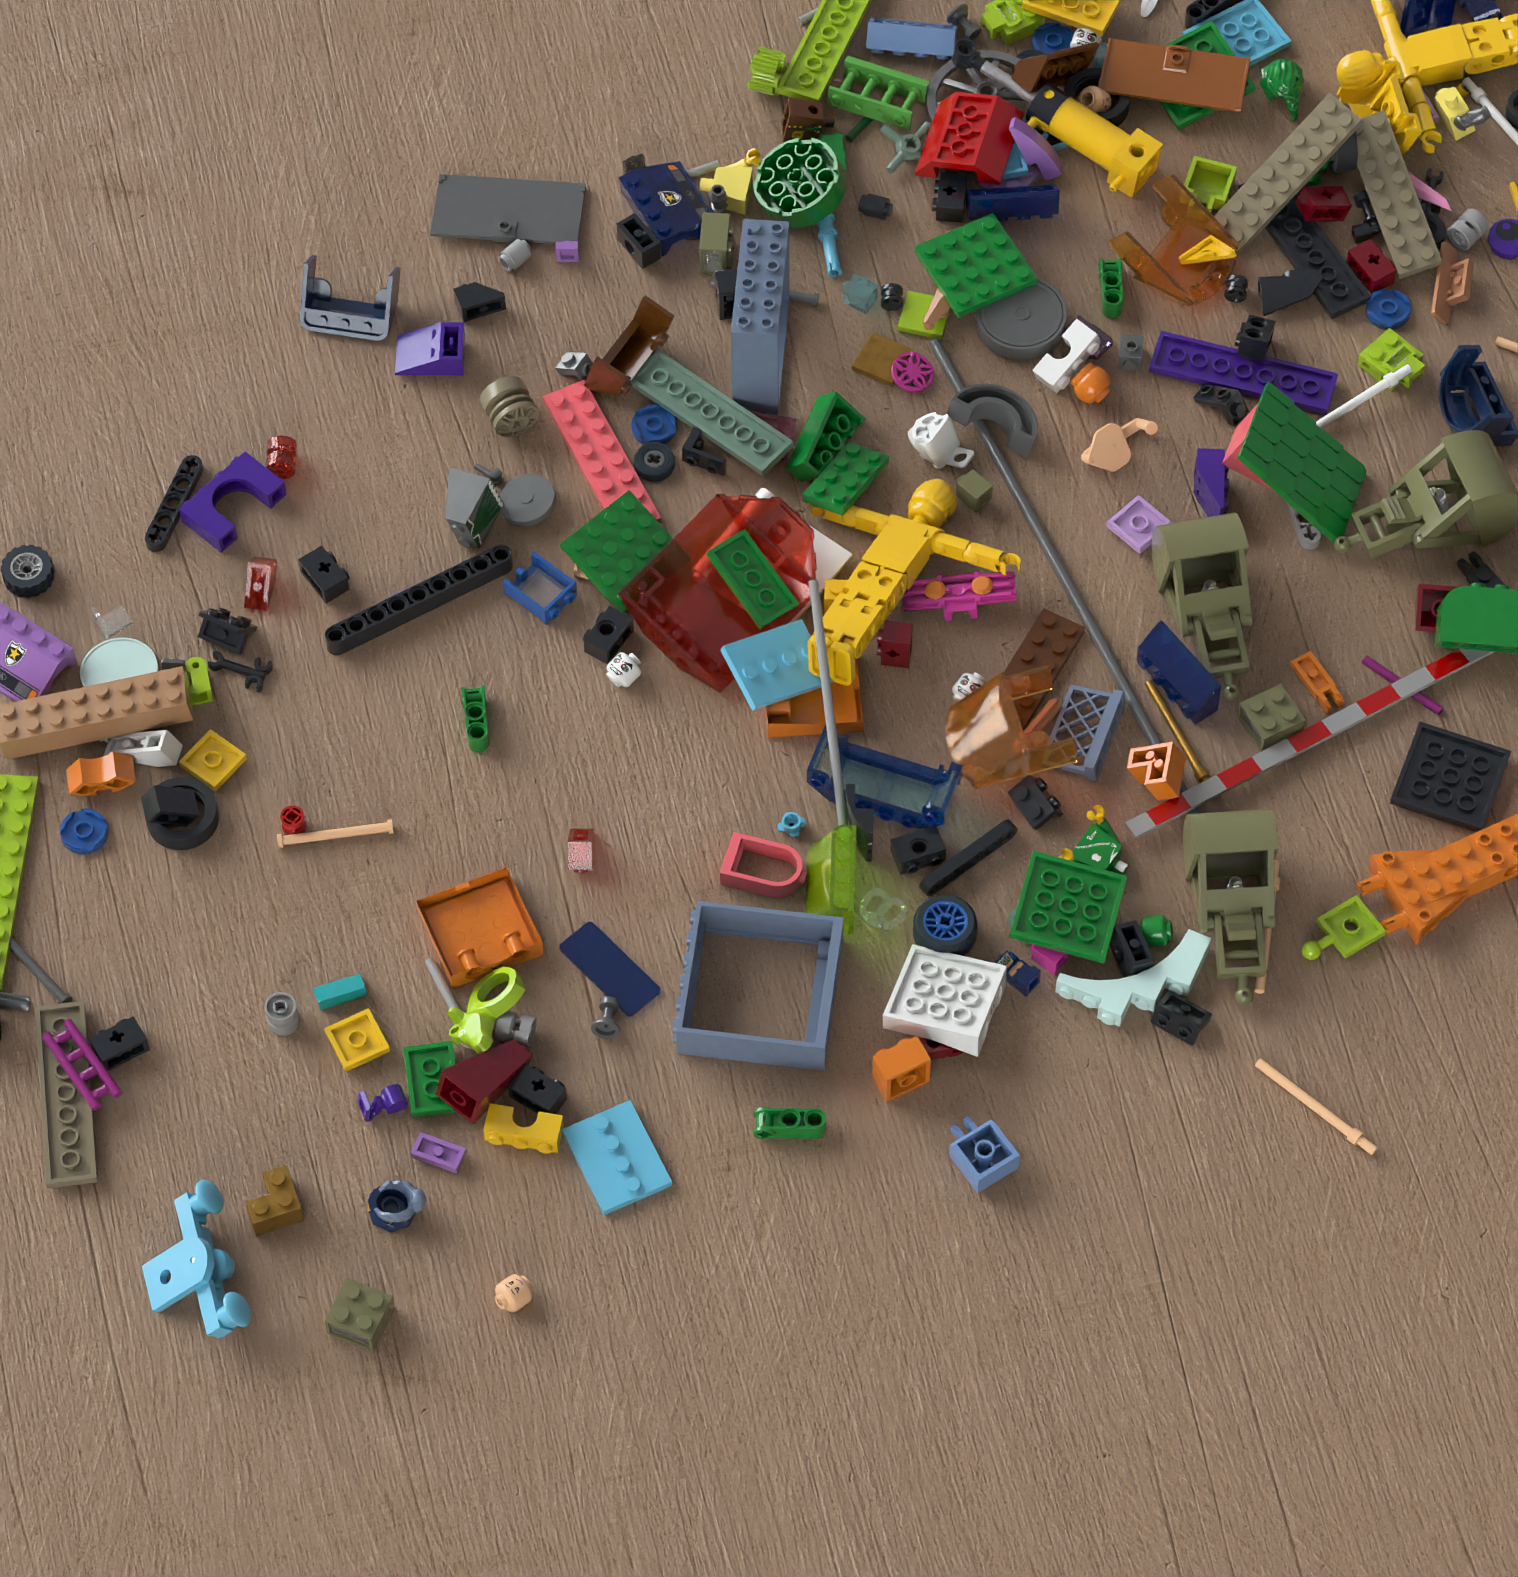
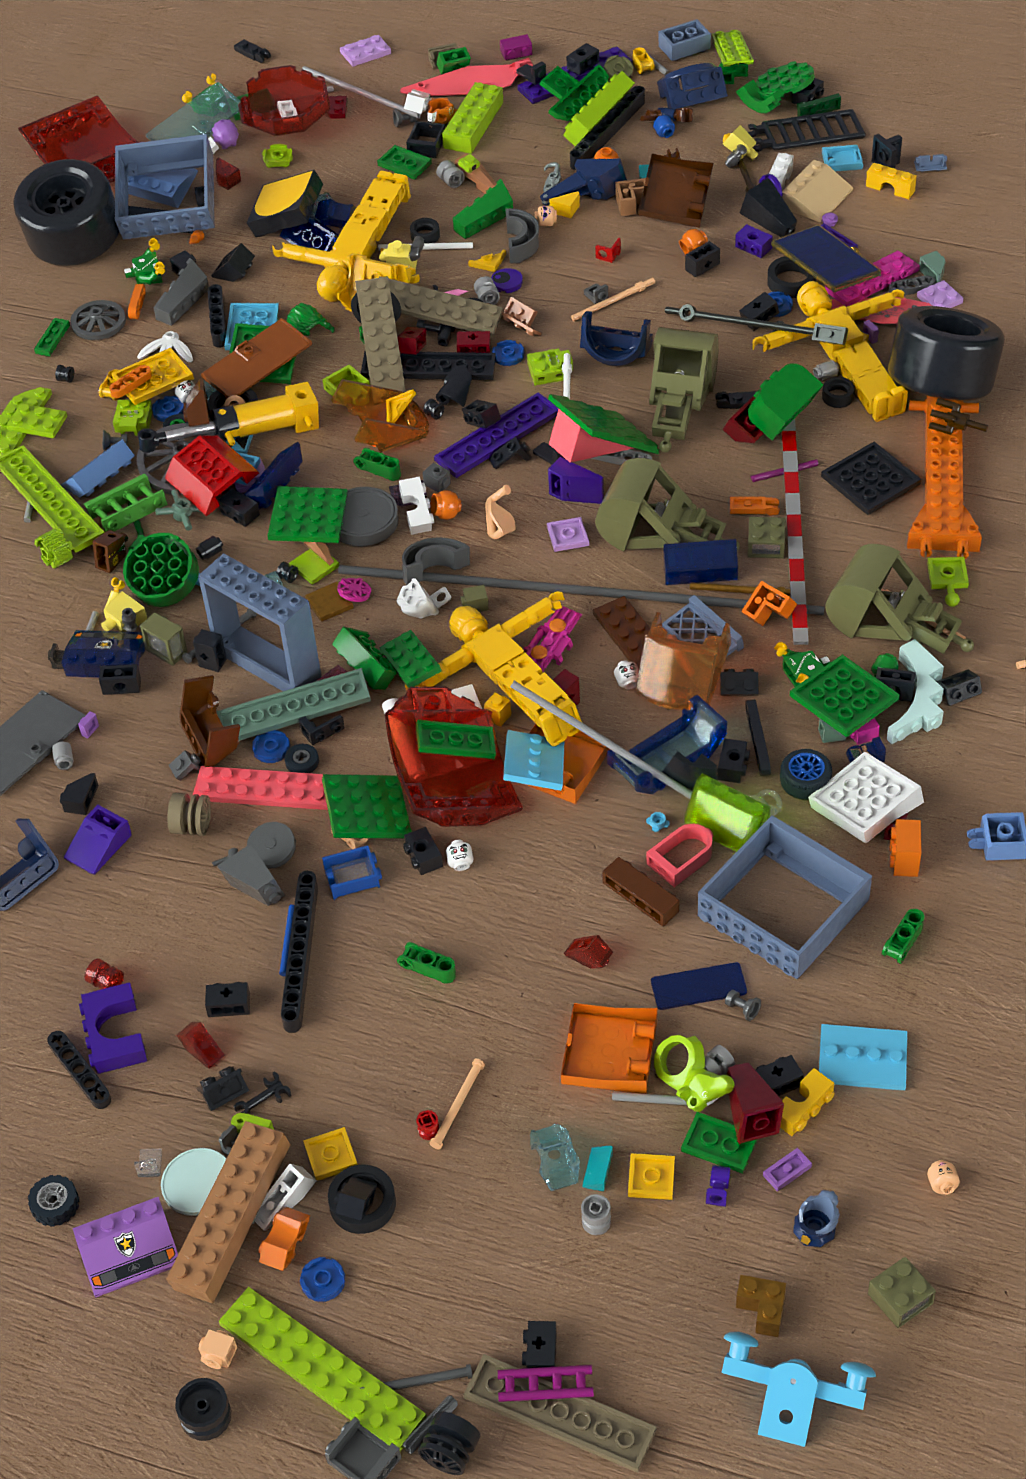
camera: 55 degrees left, 10 degrees down
(314, 959) = (565, 1169): none -> clear light blue piece
(687, 855) = (641, 891): none -> reddish brown brick
(1036, 149) = (250, 445): medium lavender slope -> none

